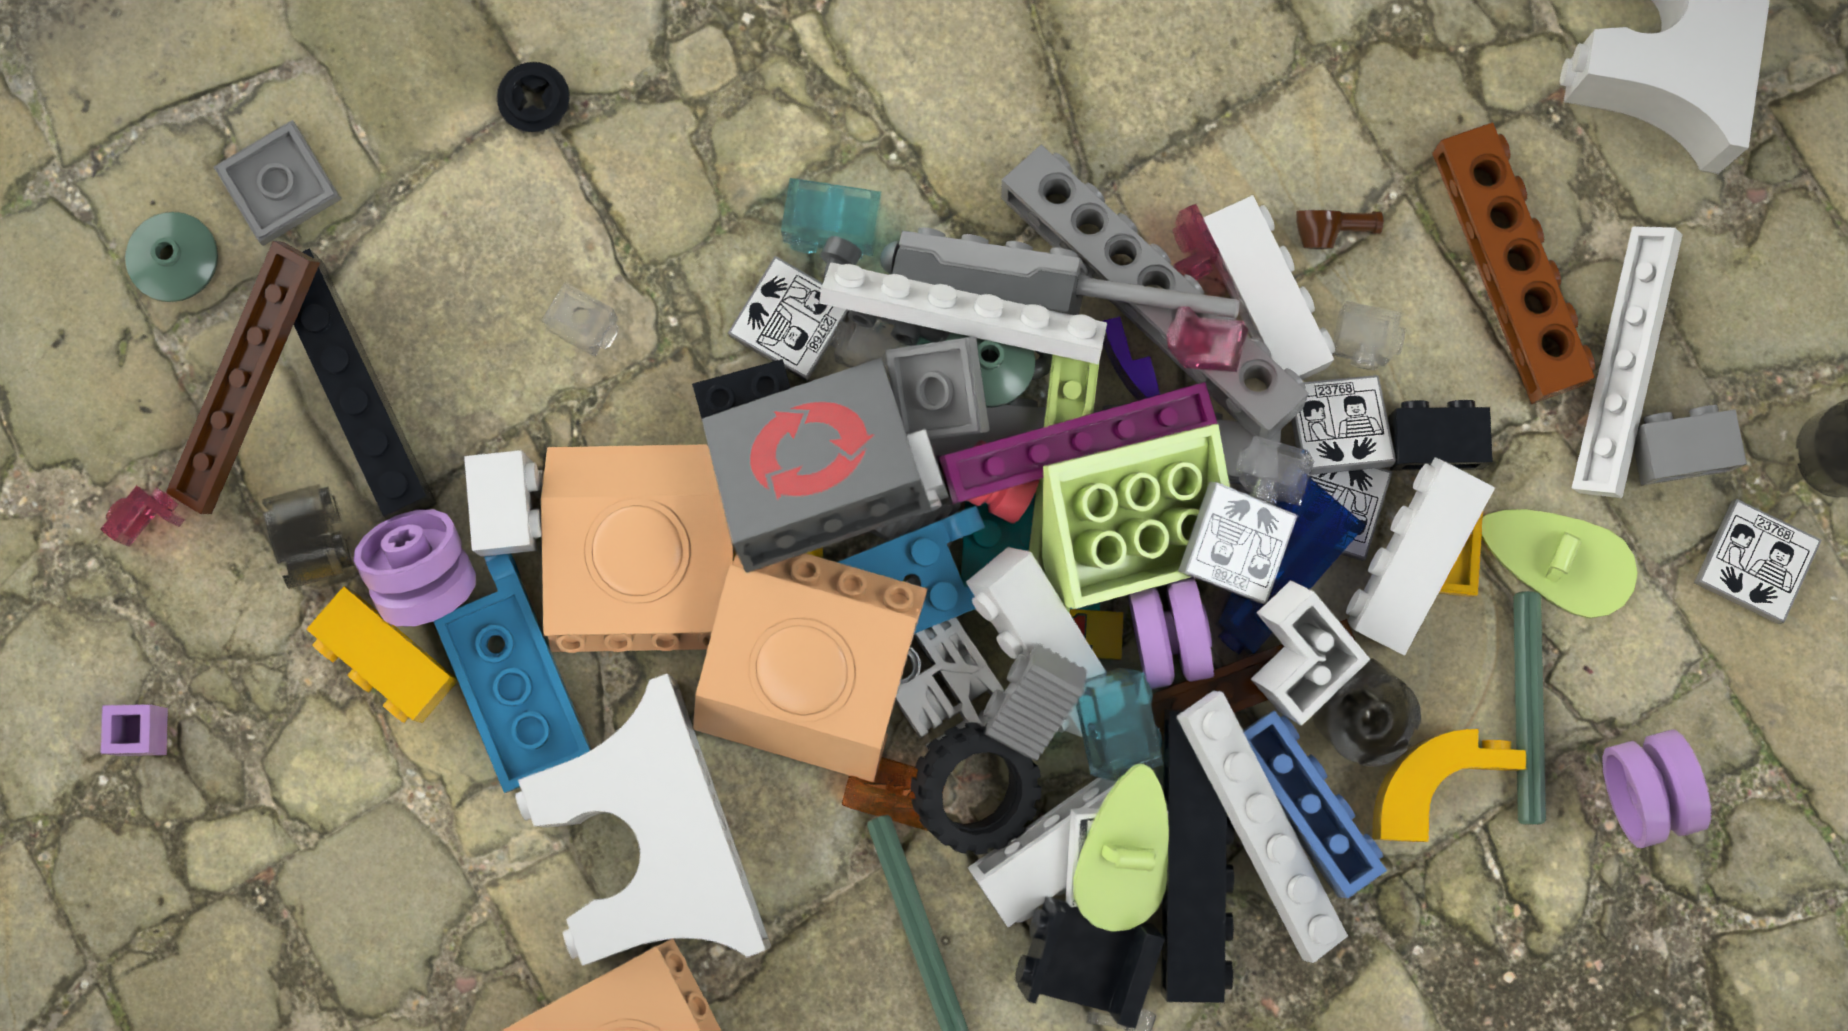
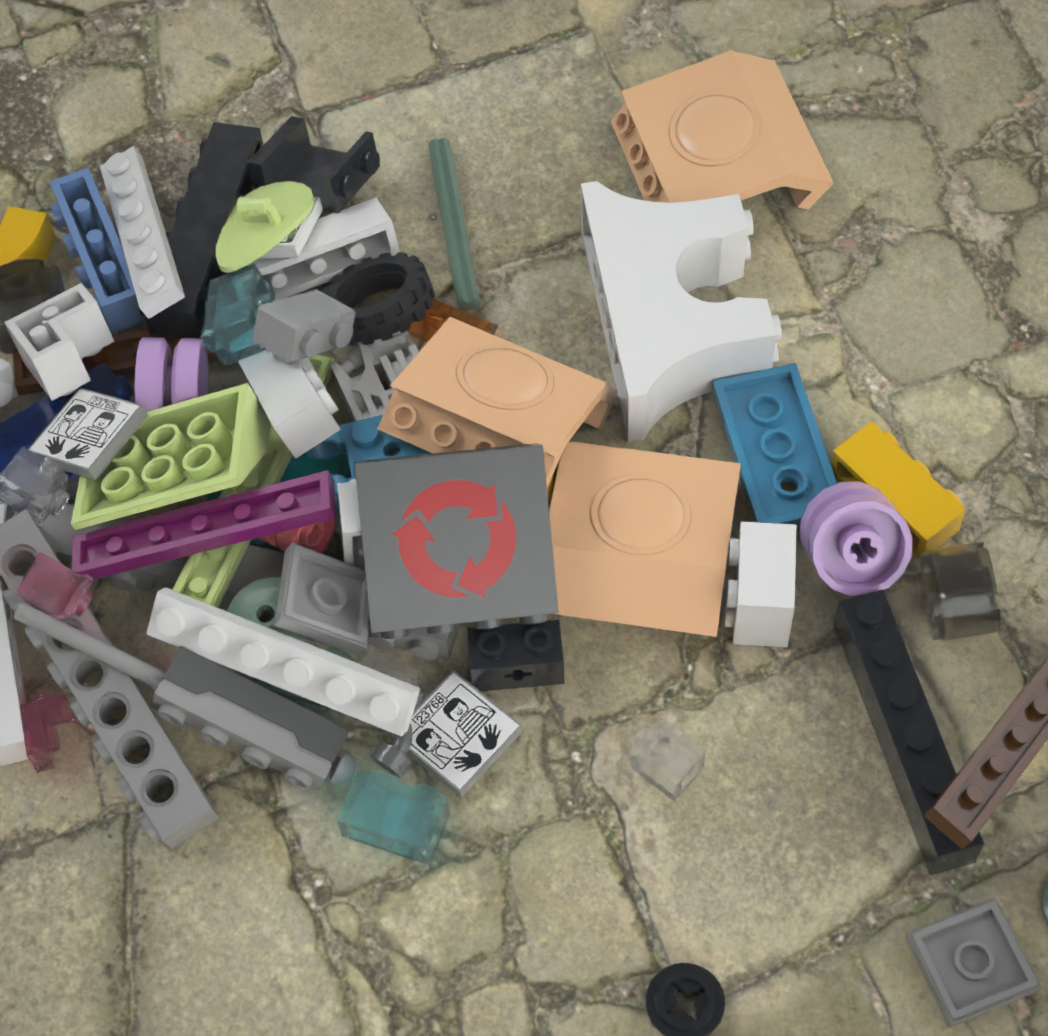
camera: 165 degrees left, 20 degrees down
(1135, 374) = (134, 624): dark purple slope -> none

